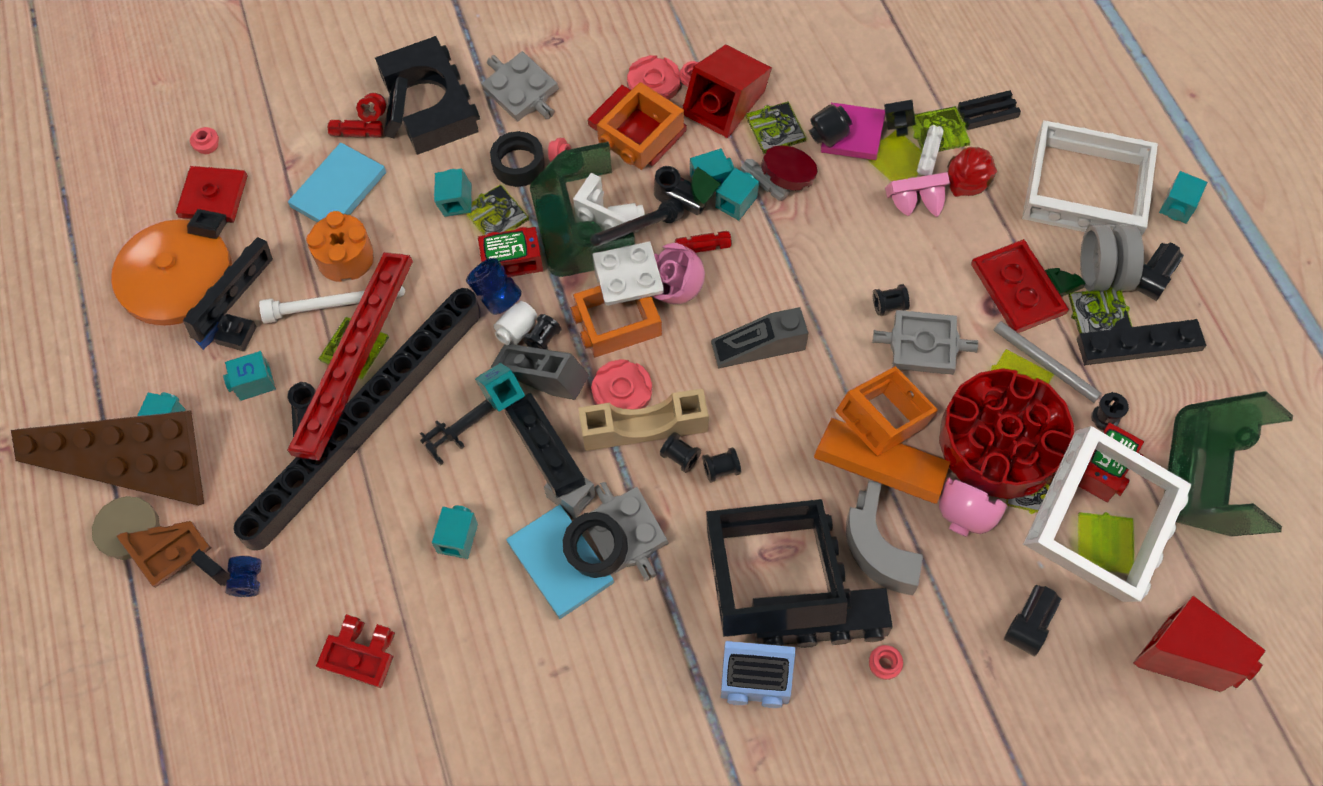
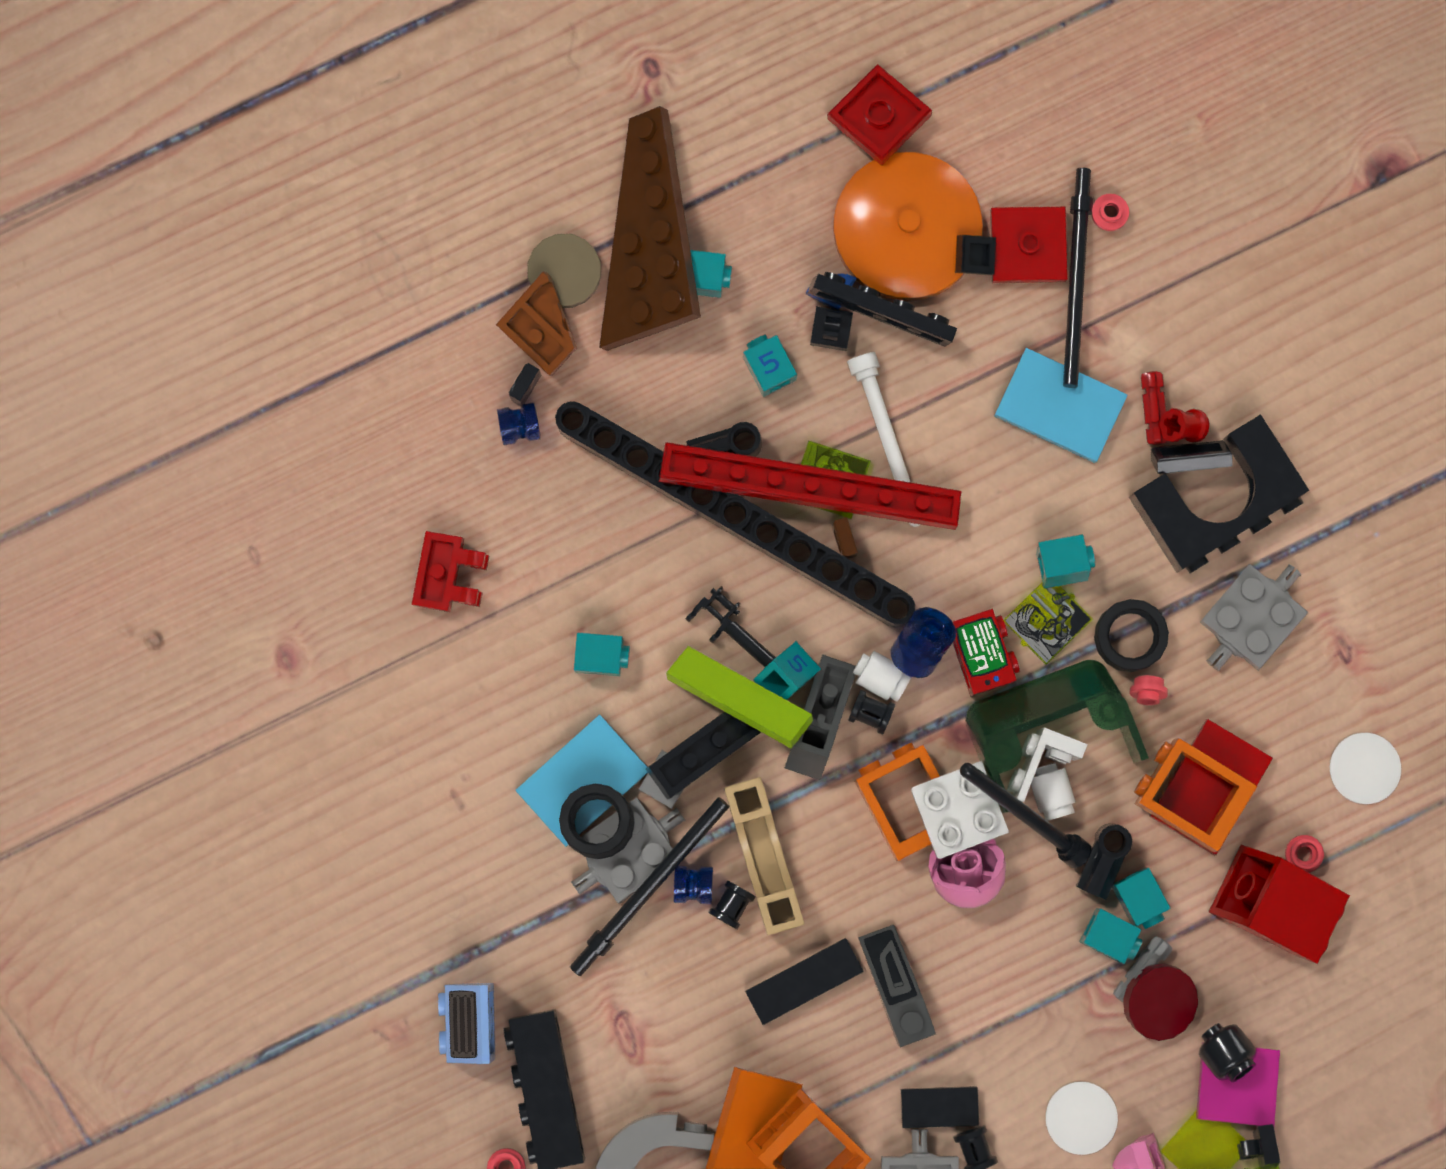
camera: 80 degrees right, 20 degrees up
(78, 278) = (879, 114): none -> red plate
(197, 157) = (1080, 207): none -> black bar
(340, 247) = (959, 413): orange brick -> none
(398, 335) = (844, 538): none -> reddish brown tile
(510, 421) = (739, 697): none -> lime tile
(622, 385) = (813, 821): coral tile -> none
(638, 38) = (1365, 768): none -> white sticker
(657, 74) = (1292, 799): coral tile -> none
(660, 479) = (693, 884): none -> clear blue wheel
(698, 559) = (601, 941): none -> black bar
(703, 186) = (1101, 891): dark green tile -> none
(706, 242) = (1034, 898): red axle -> none
(721, 464) = (722, 956): black bush -> none
(749, 409) = (804, 981): none -> black tile
(775, 126) = (1234, 977): piece -> none
(776, 519) = (657, 1018): black window -> none
(856, 323) = (939, 1107): none -> black tile
(870, 233) = (1081, 1118): none -> white sticker

